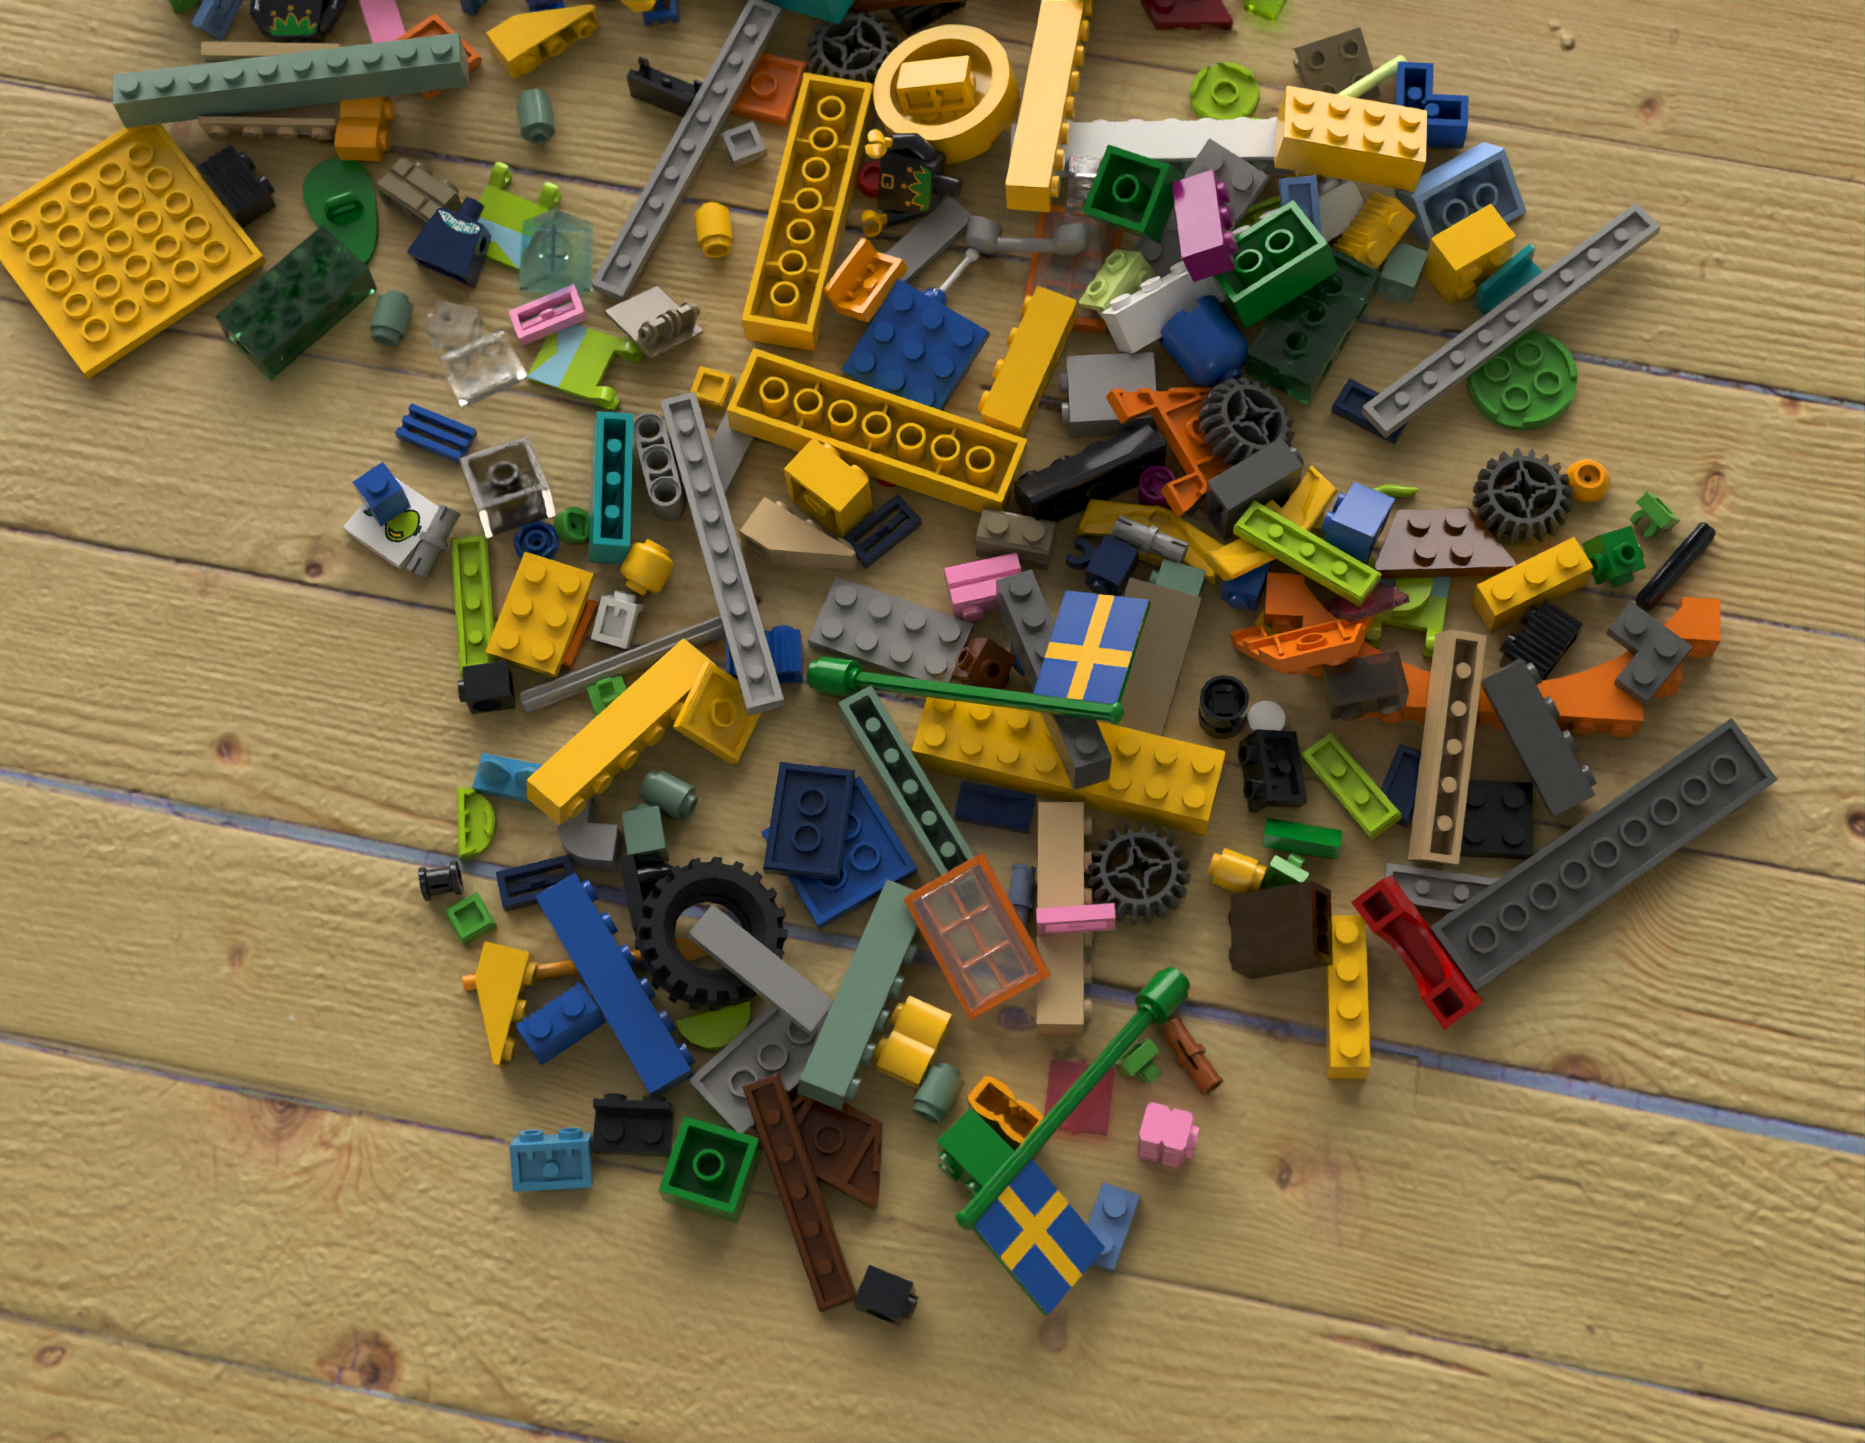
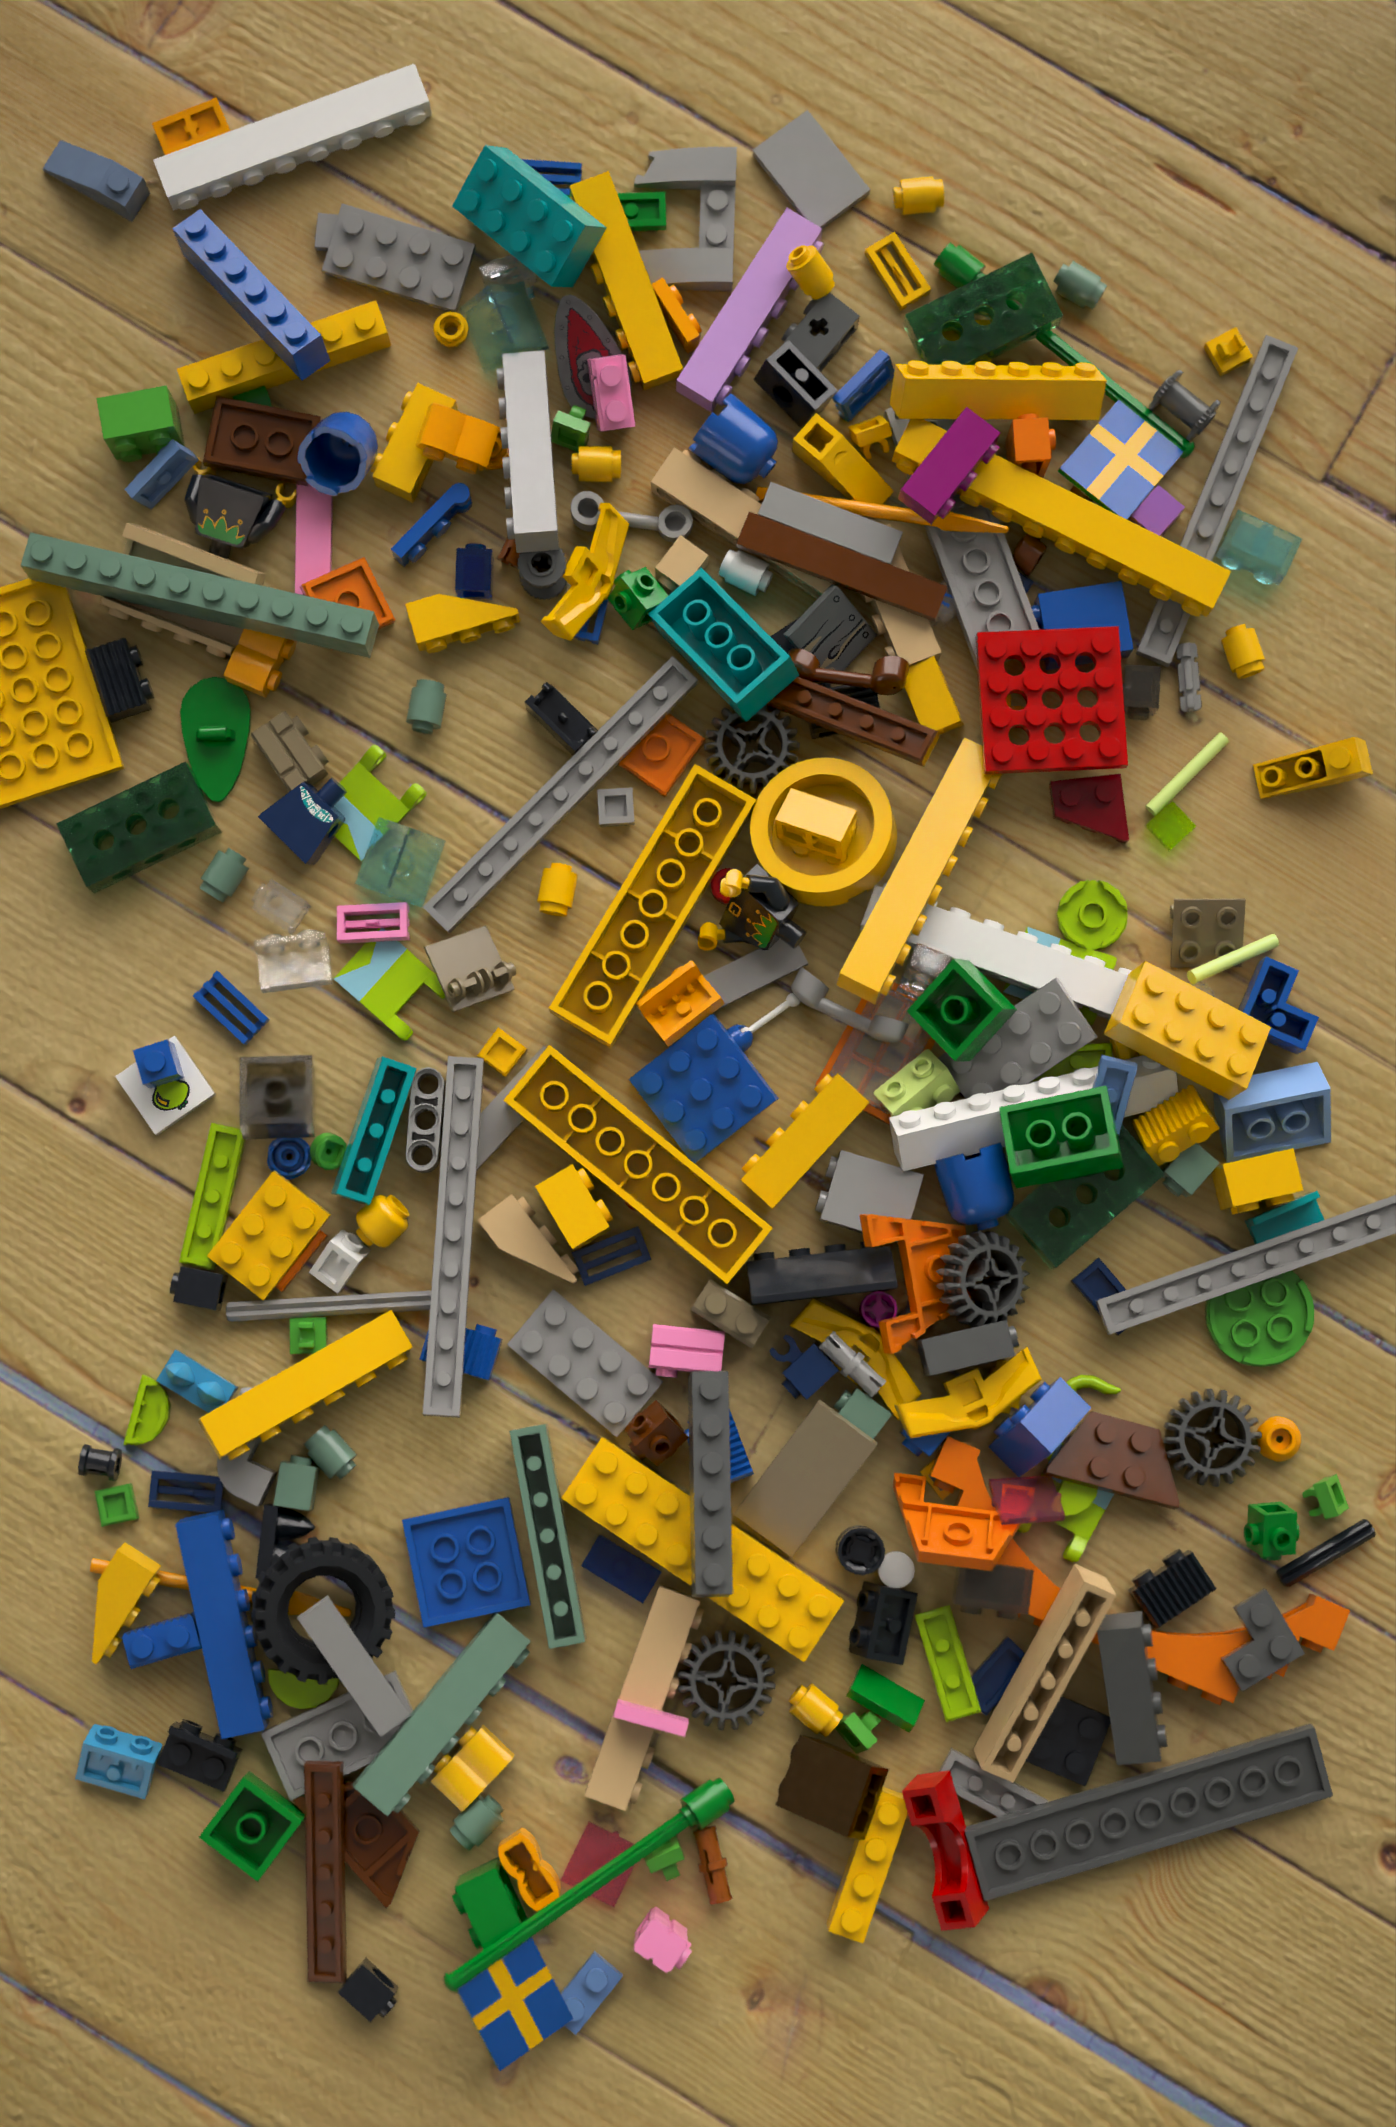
camera: 10 degrees right, 15 degrees up
(433, 541) = (194, 1122): light grey pin -> none
(717, 714) = (396, 1393): yellow tile -> none
(809, 821) = (447, 1528): dark blue tile -> none
(976, 936) = (558, 1700): clear piece -> none
(1021, 890) = (609, 1668): sand blue pin -> none
(1079, 676) = (733, 1505): flag -> none
(1204, 225) = (1013, 1079): brick -> none
(1307, 553) = (988, 1439): lime tile -> none
(1530, 583) = (1186, 1529): yellow brick -> none

